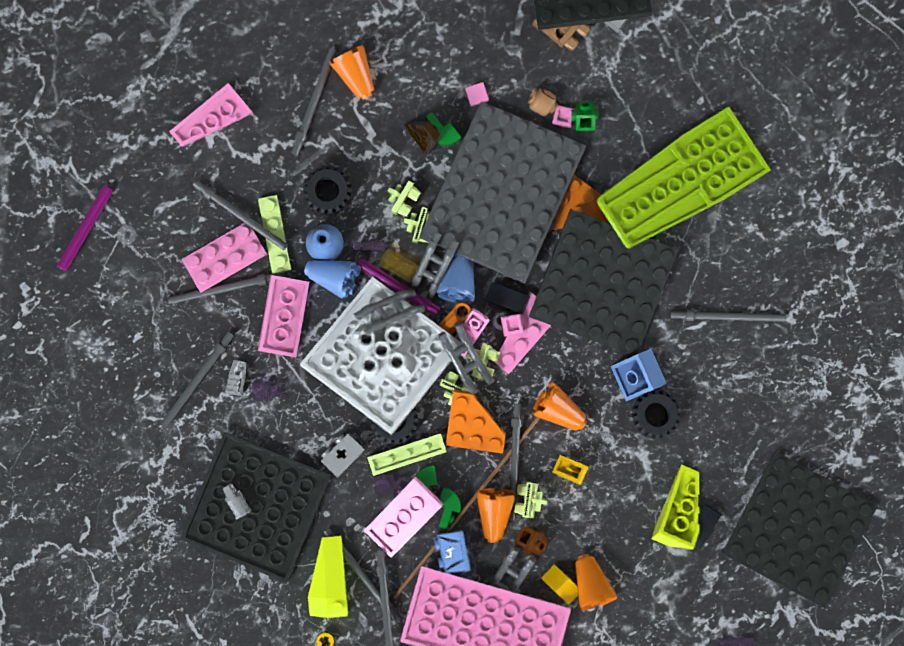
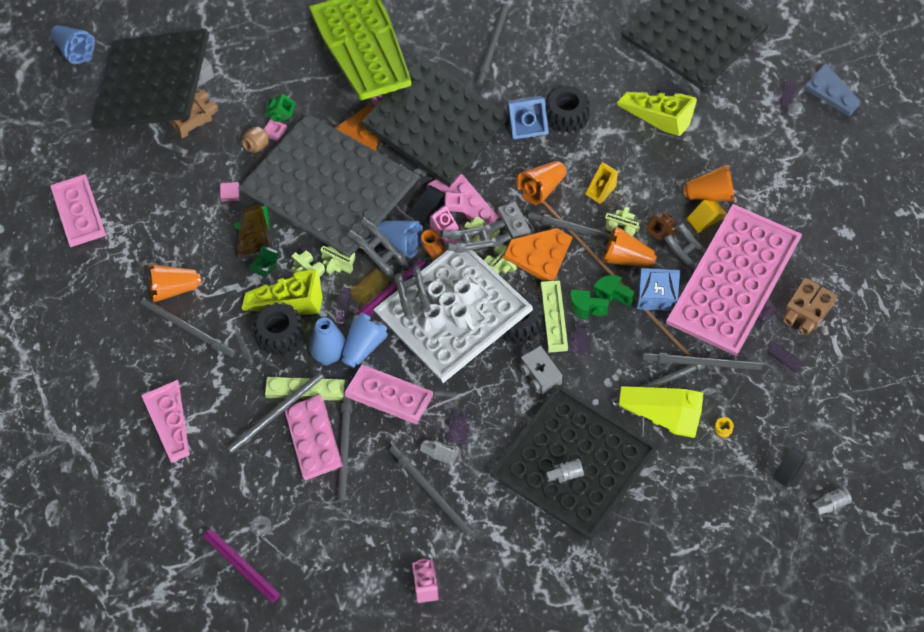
camera: 75 degrees left, 25 degrees down
(103, 398) = (425, 580): none -> bright pink slope
(369, 192) = (300, 291): none -> neon yellow wedge
(399, 155) = (265, 262): none -> dark green bracket
(403, 517) = (615, 325): plate -> none
(500, 391) = (513, 221): none -> light grey brick

